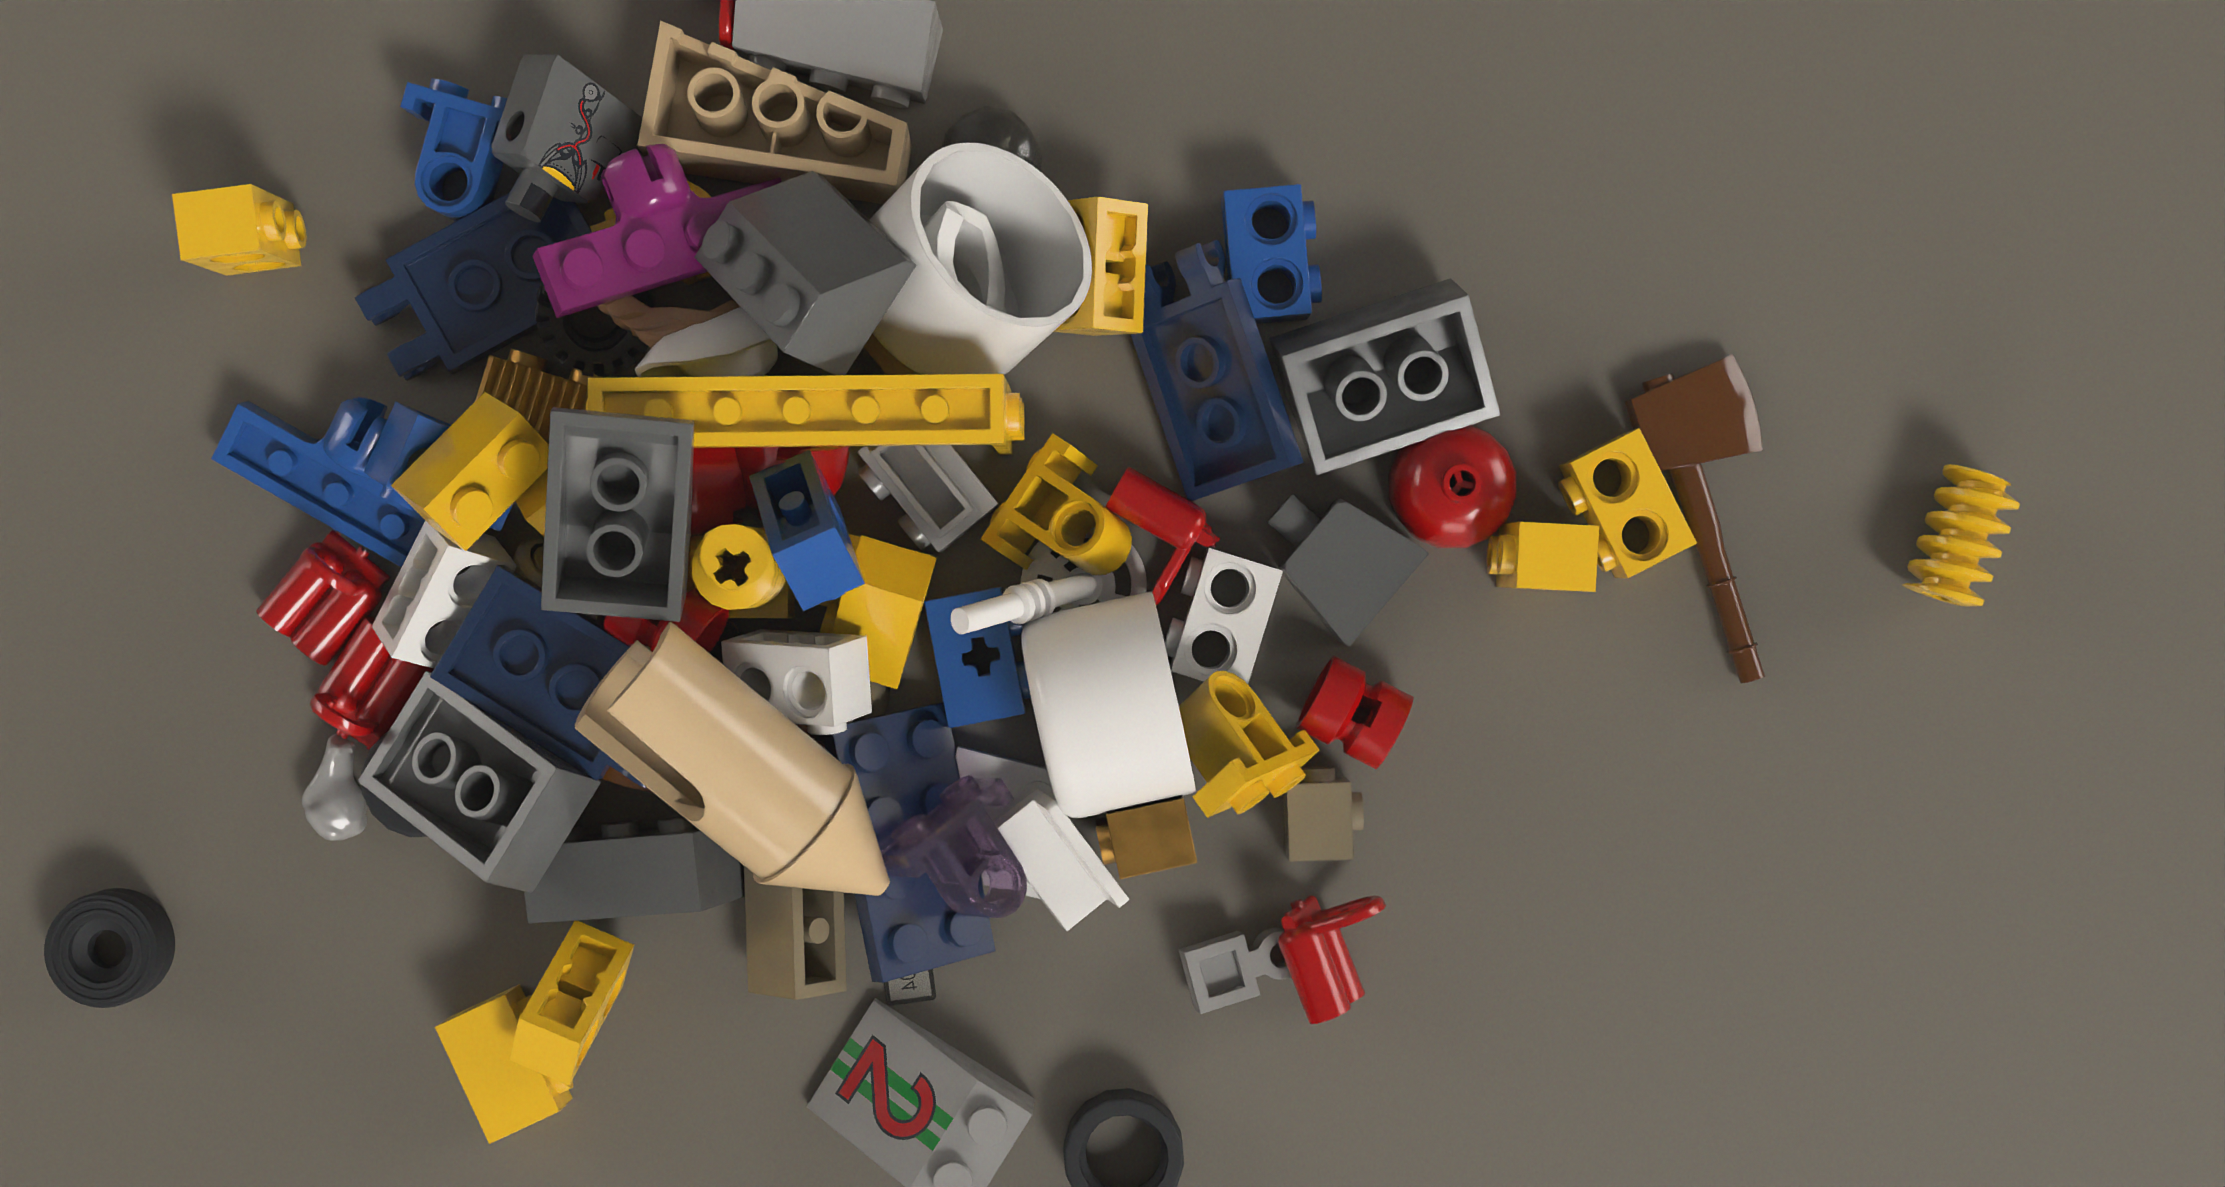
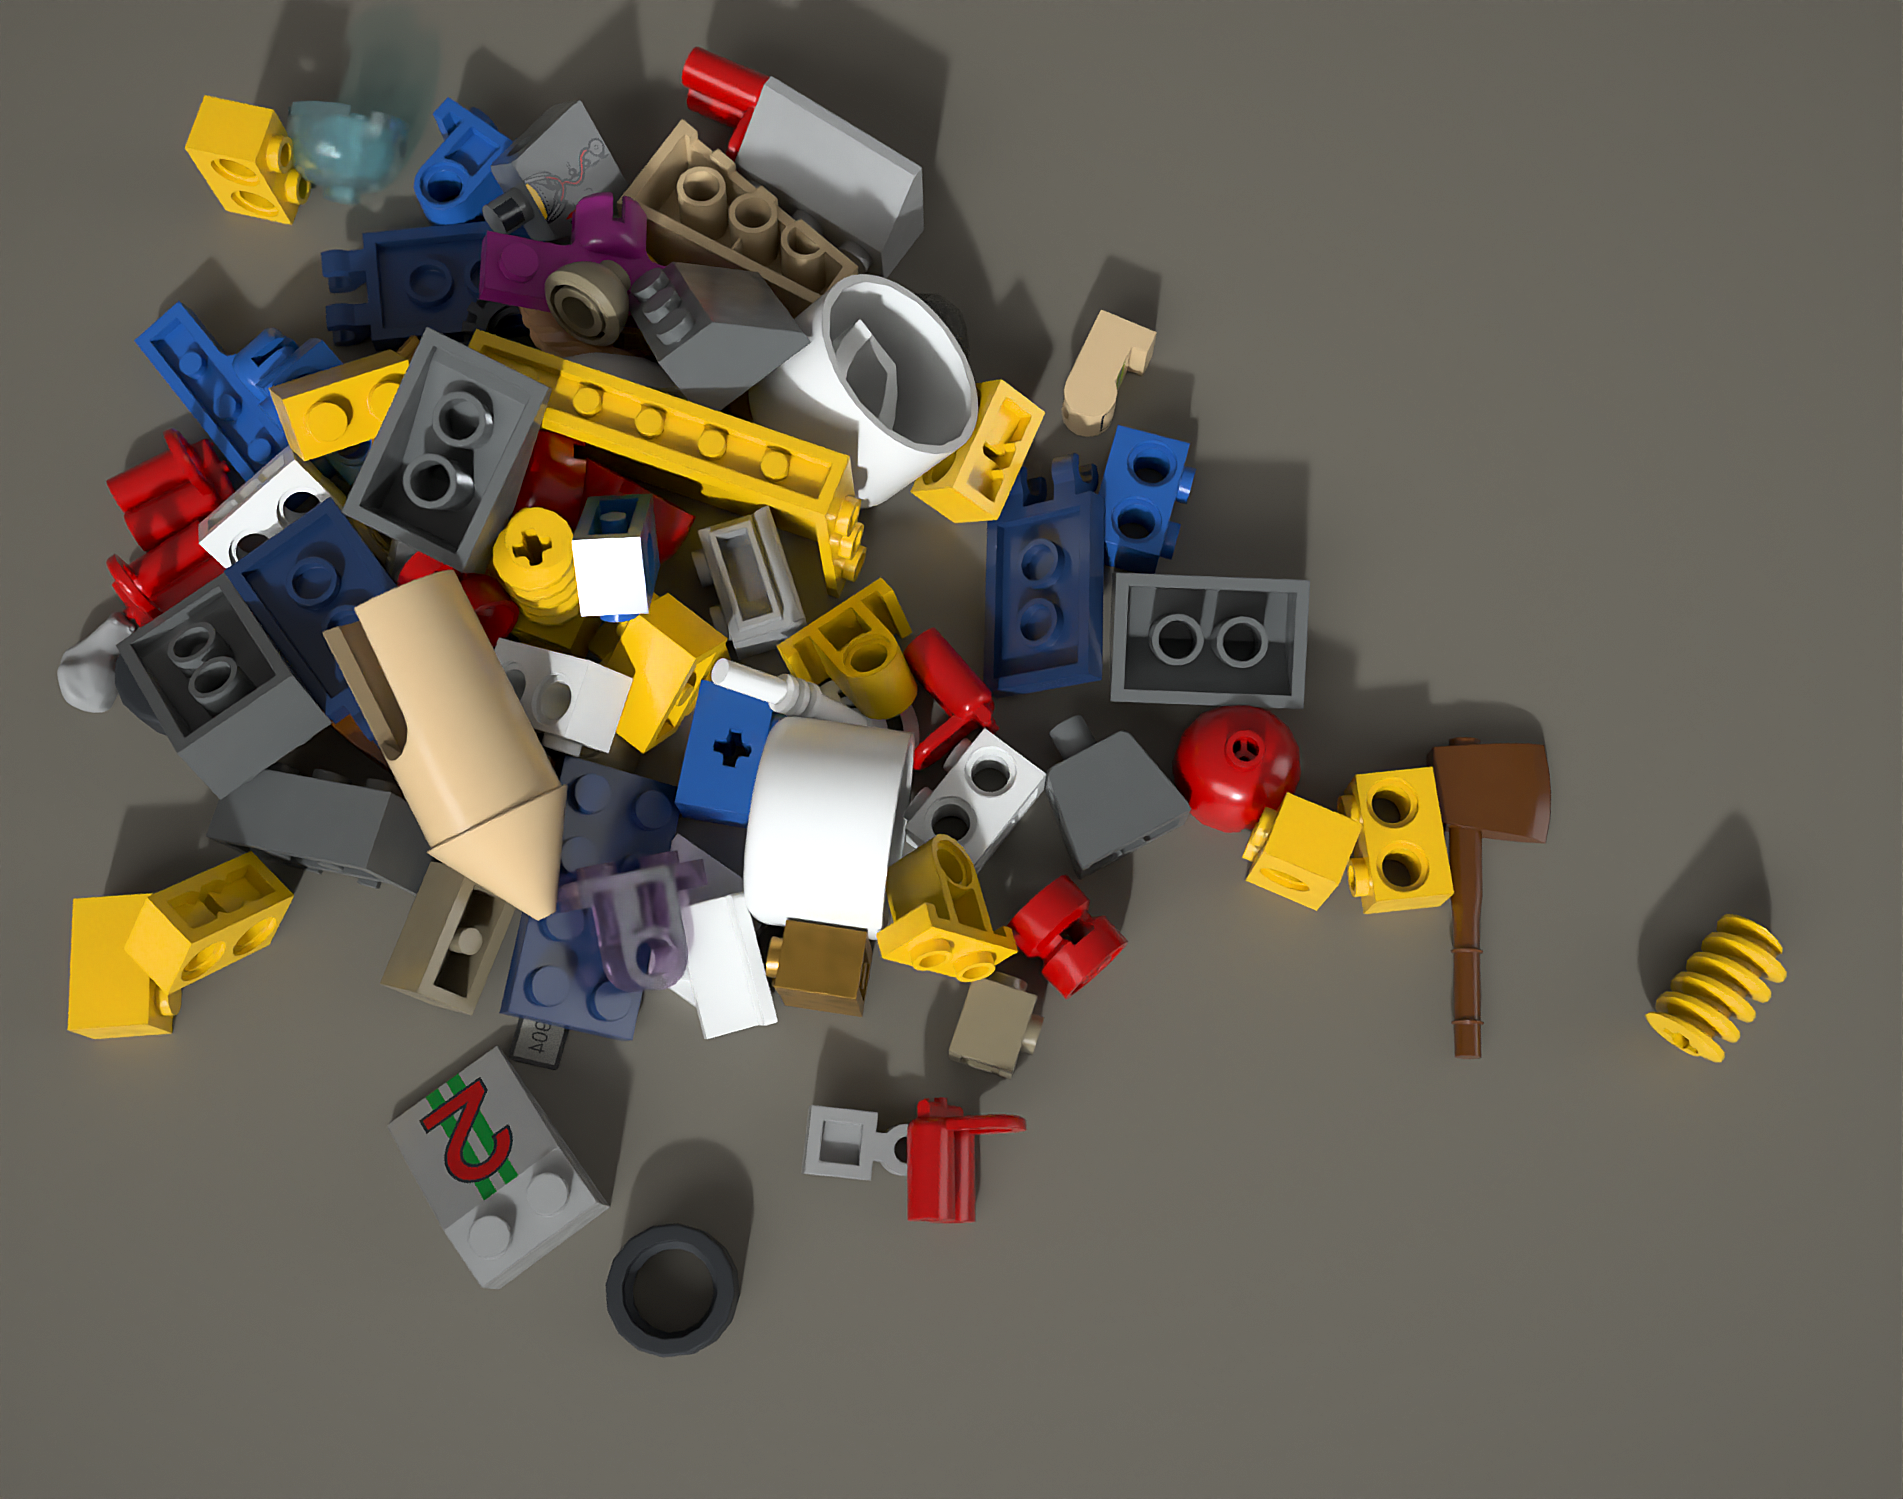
camera: 20 degrees right, 15 degrees down
(328, 177) = (346, 149): none -> clear light blue cylinder
(671, 281) = (590, 300): none -> dark tan brick
(1180, 154) = (1099, 370): none -> tan leg

